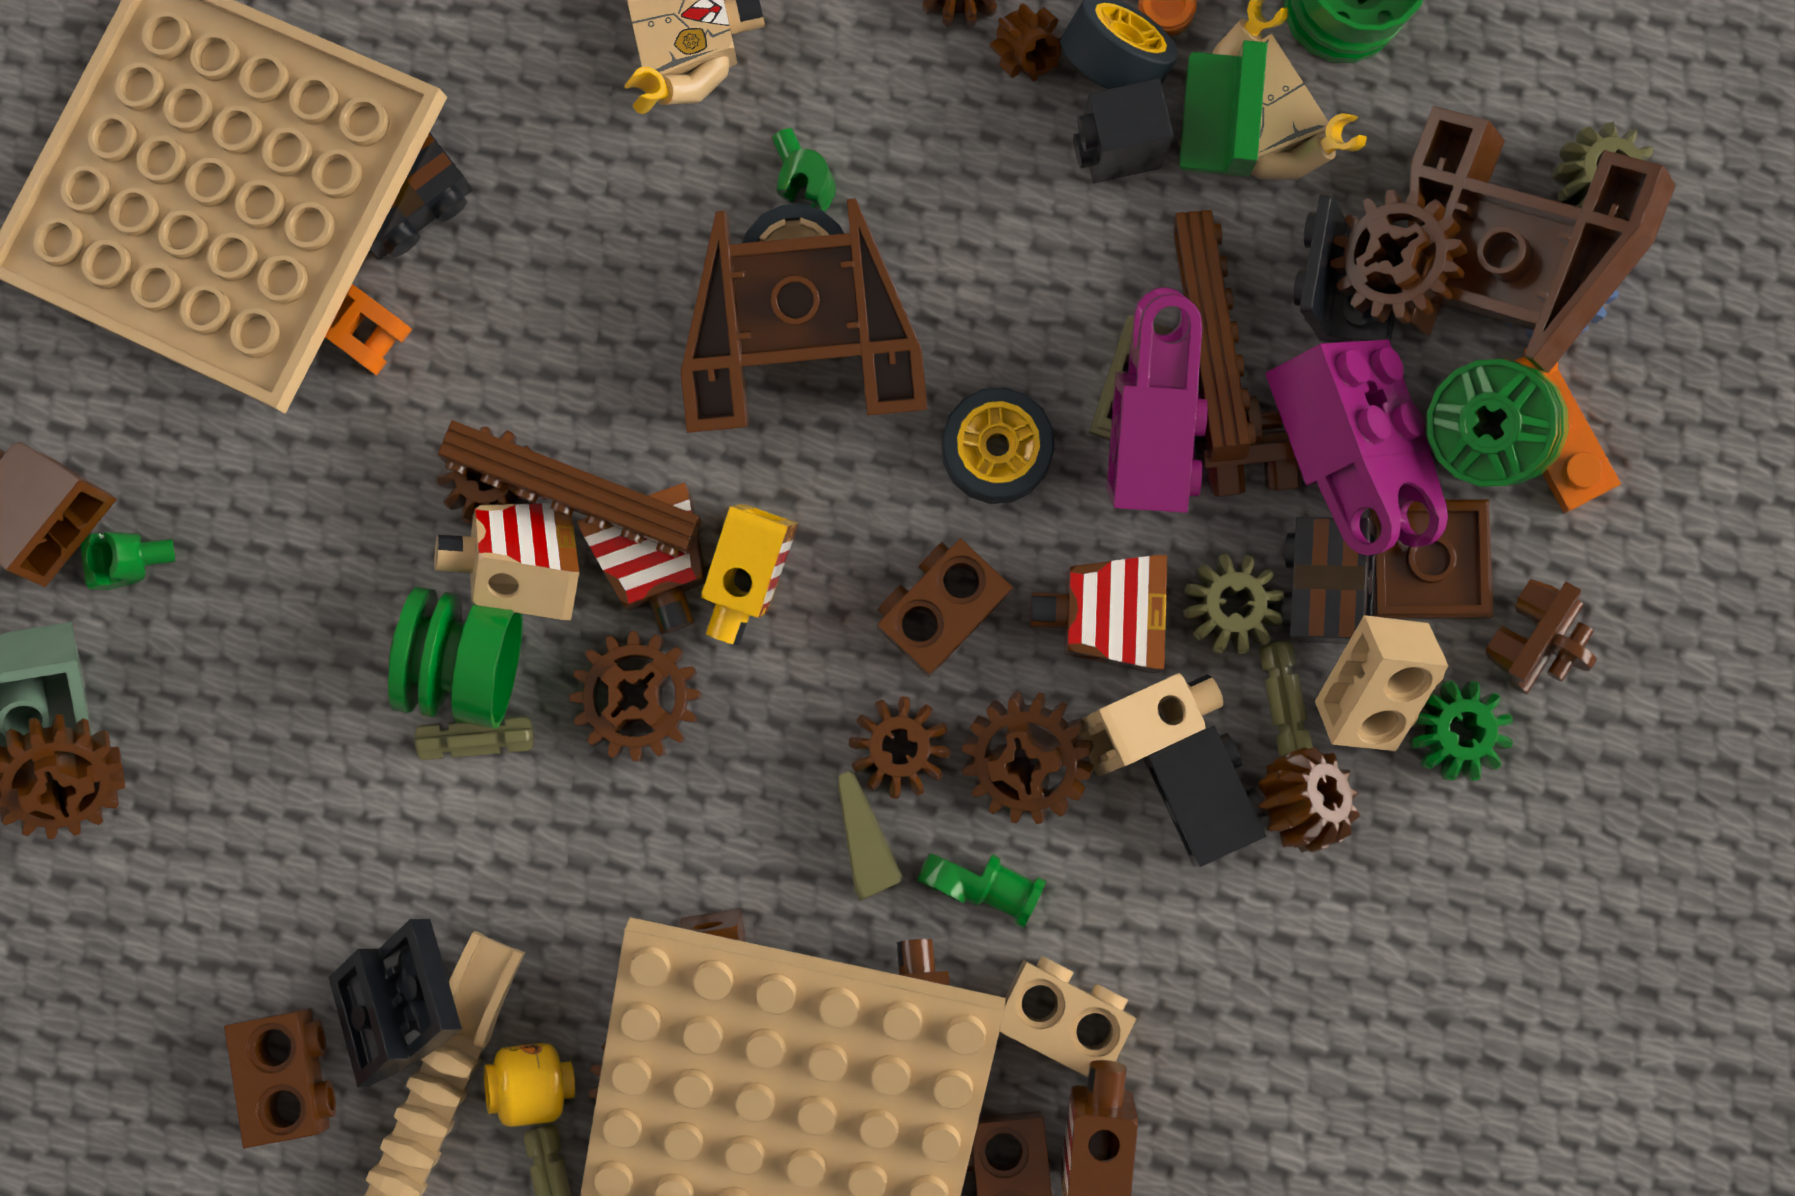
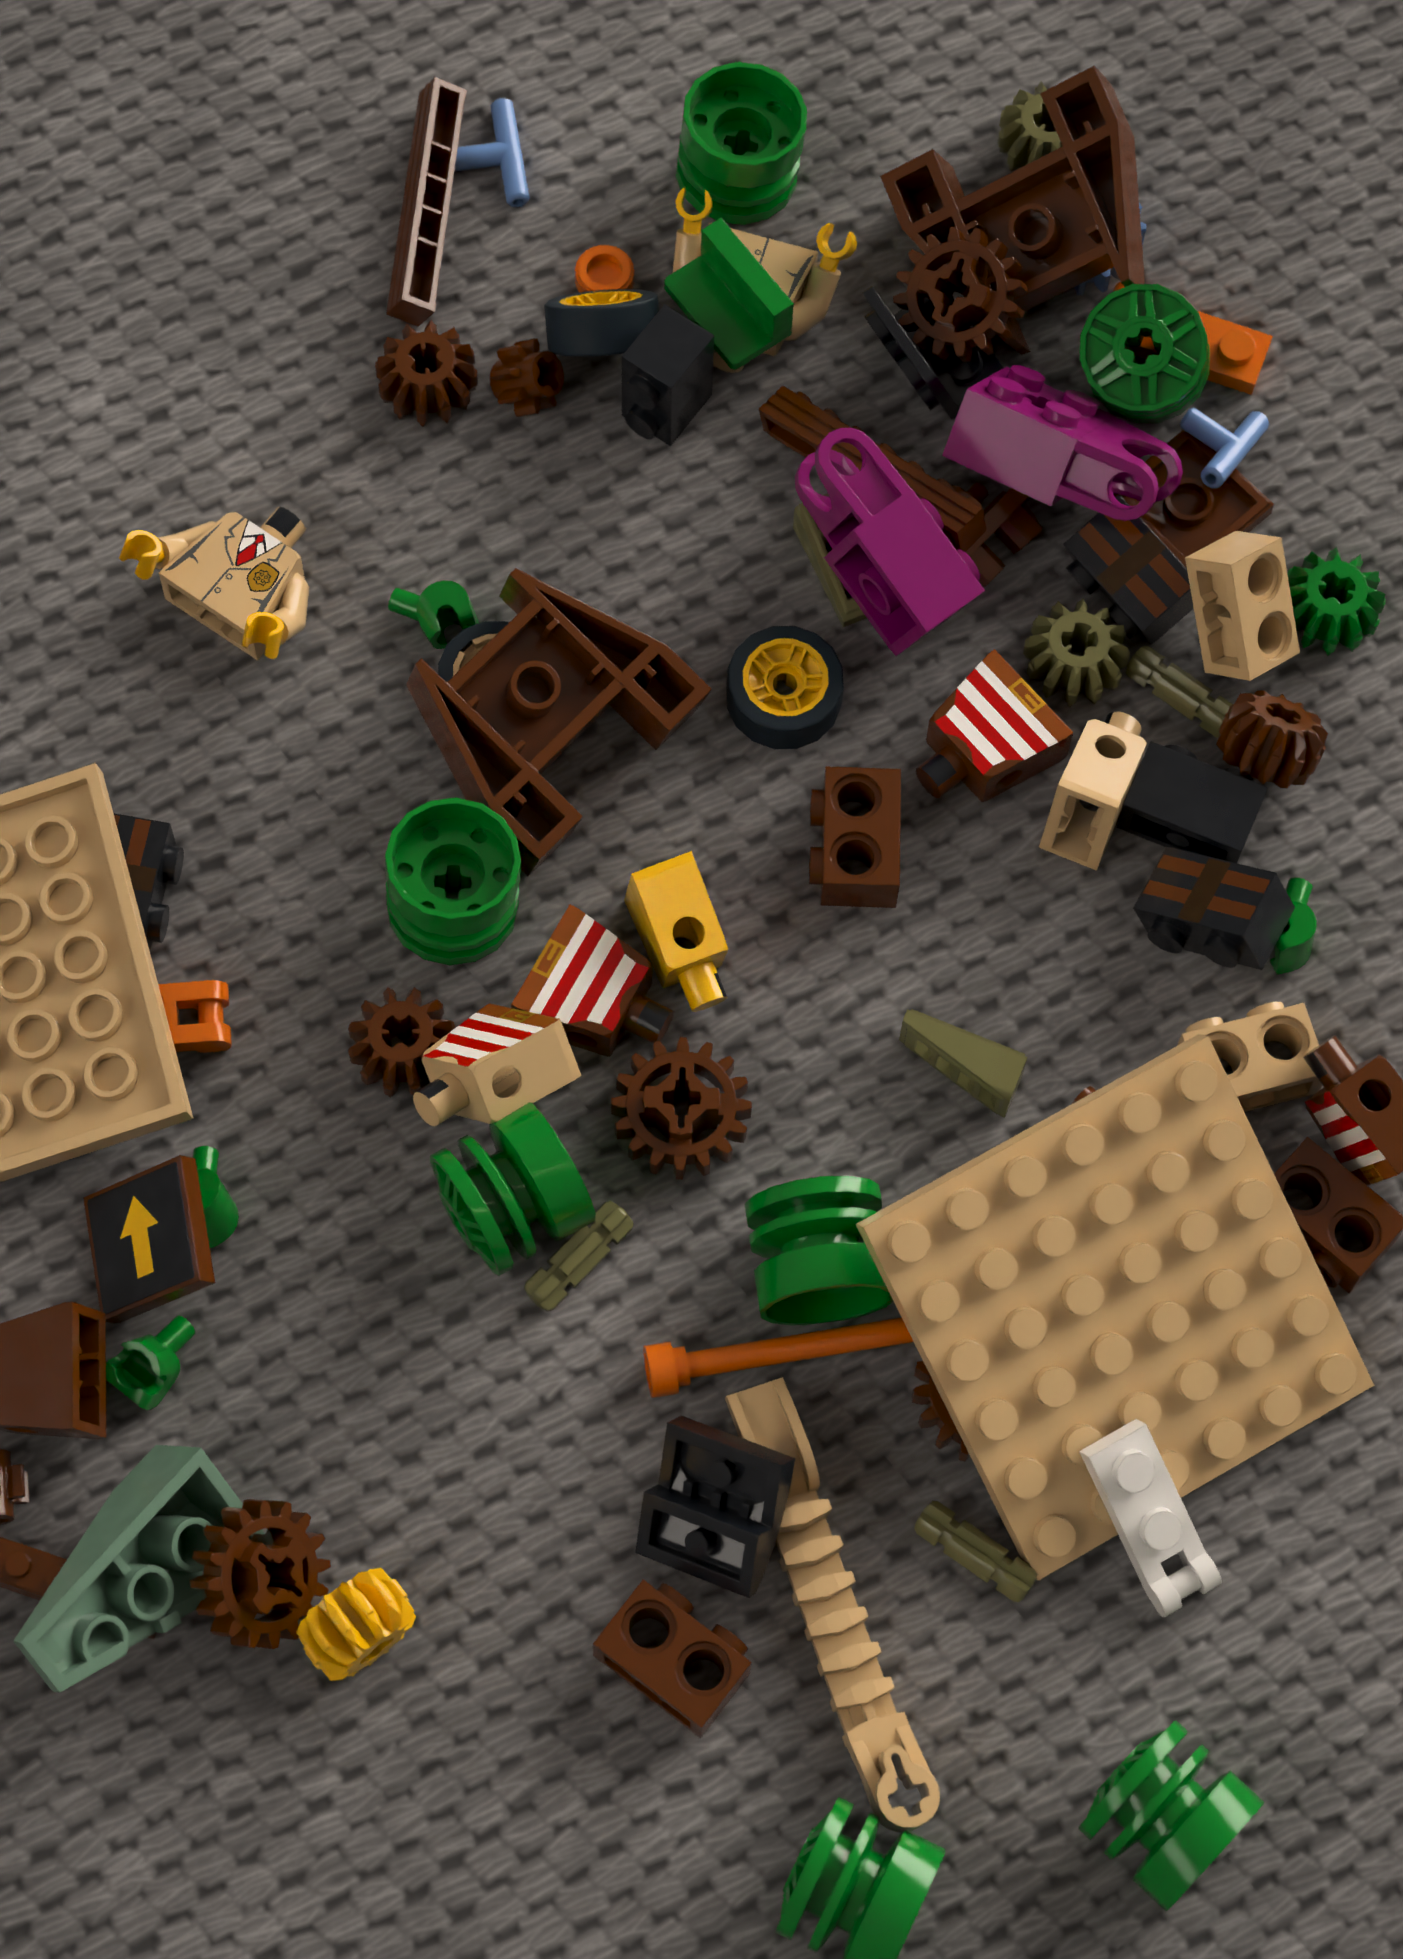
camera: 45 degrees left, 15 degrees down
(87, 868) = (356, 1624): none -> yellow gear
(189, 473) = (149, 1239): none -> black tile
(258, 479) = (218, 1206): none -> green piece
(464, 875) = (673, 1367): none -> orange piece
(528, 1084) = (882, 1481): yellow head -> none
(569, 489) = (485, 978): reddish brown piece -> none
(618, 358) = (459, 849): none -> green wheel
(628, 882) = (815, 1250): none -> green wheel
(915, 735) = (928, 948): reddish brown gear -> none
(995, 887) = (1096, 1011): green connector -> none
(1004, 765) = (1051, 868): reddish brown gear -> none
(1140, 890) = (1214, 908): none -> black brick
(1194, 944) = (1298, 935): none -> green piece
(1501, 544) = (1229, 446): none -> medium blue piece
(1554, 613) = (1314, 462): reddish brown hips -> none

